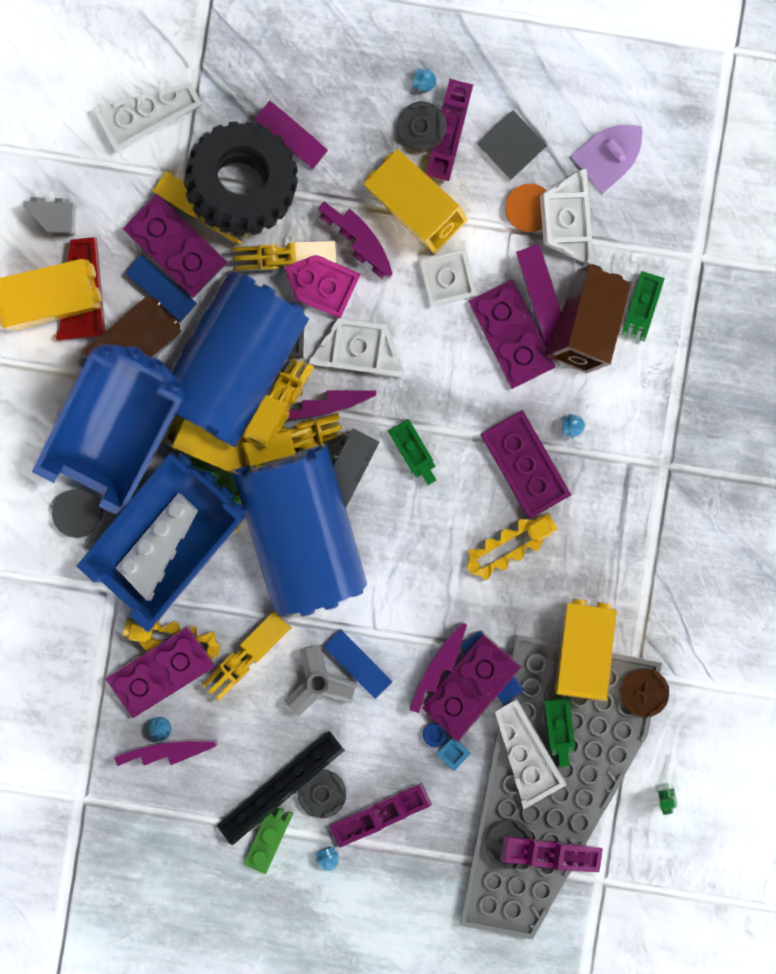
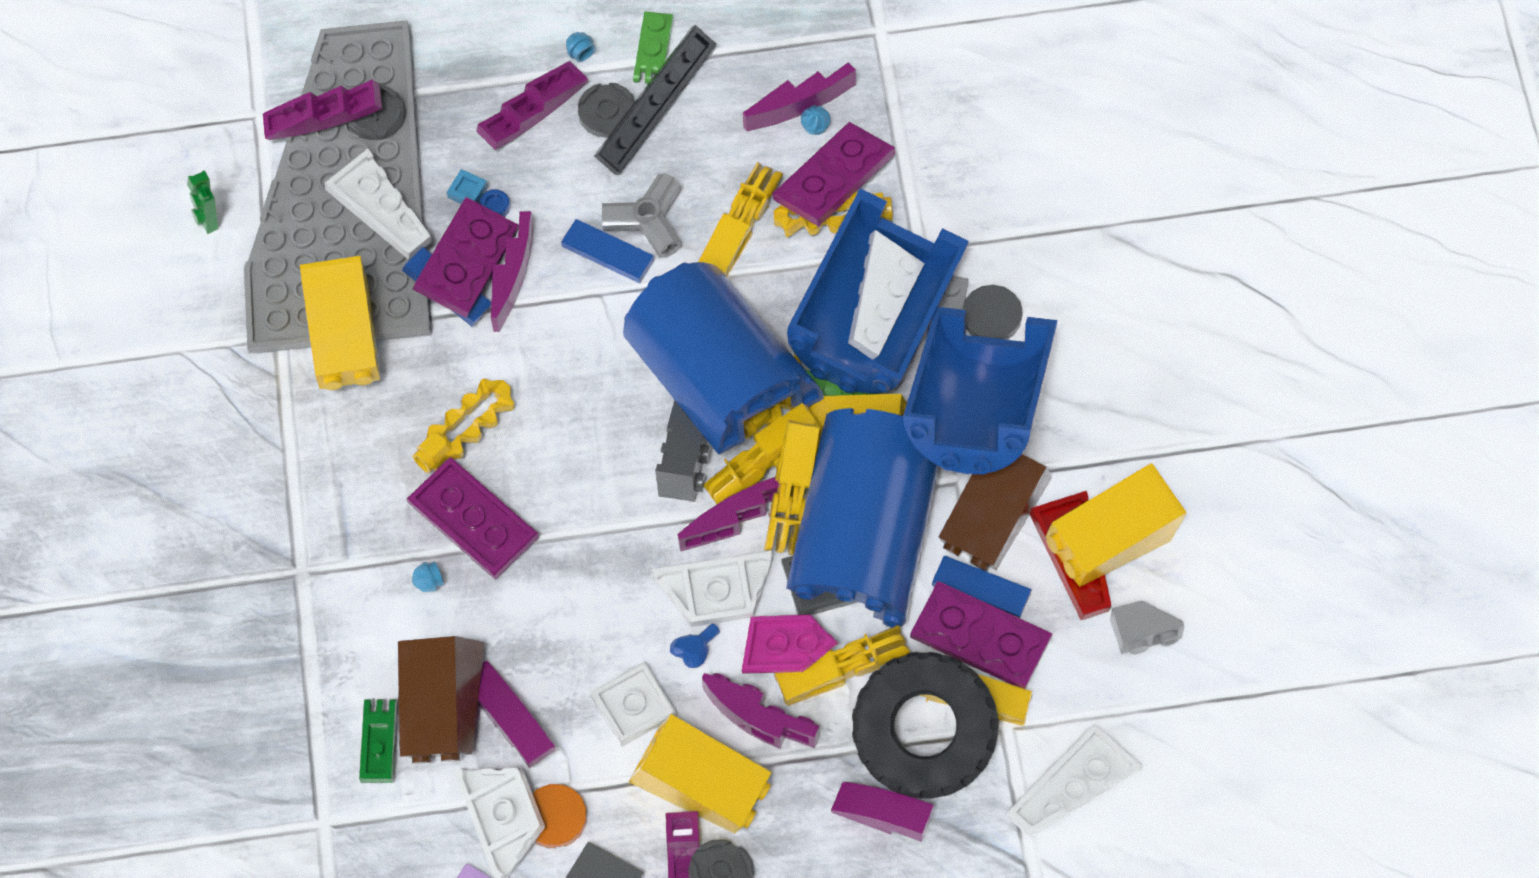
camera: 170 degrees right, 25 degrees down
(389, 307) = (694, 648): none -> blue rock
(413, 450) = (613, 493): green hinge -> none
(511, 334) = (534, 662): magenta piece -> none
(560, 729) = (347, 235): green hinge -> none
(644, 692) = (259, 309): reddish brown tile -> none

